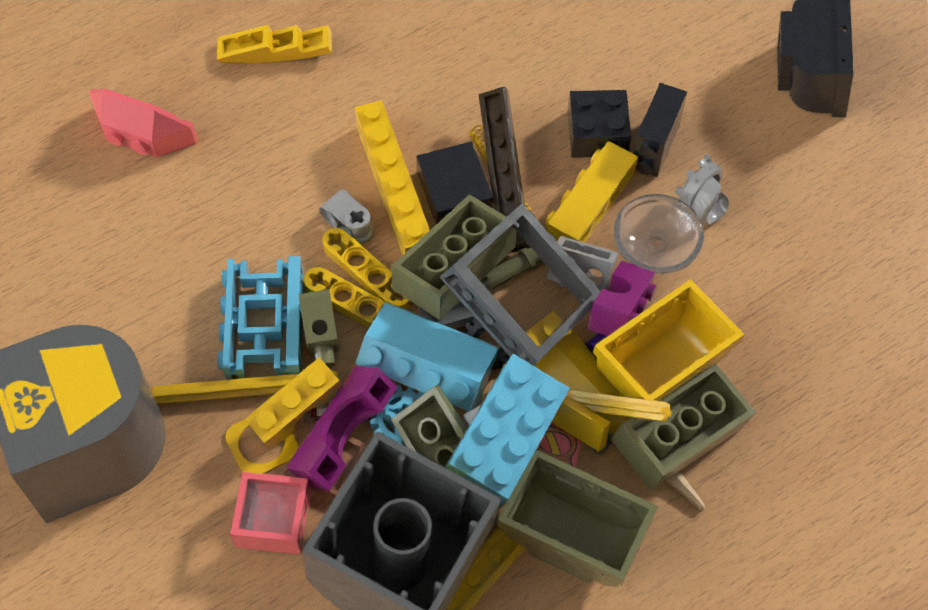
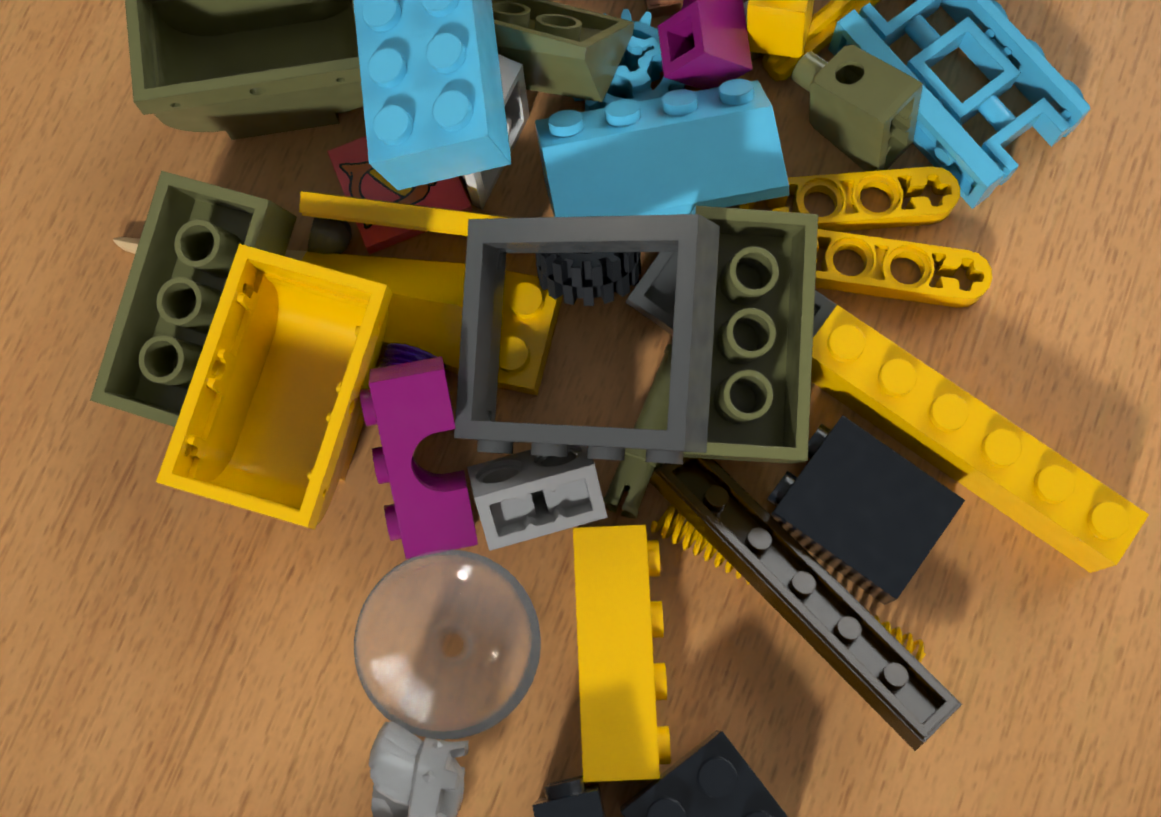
camera: 150 degrees right, 15 degrees up
(346, 213) = (991, 327): light grey piece -> none
(623, 406) = (321, 235): yellow axle -> none

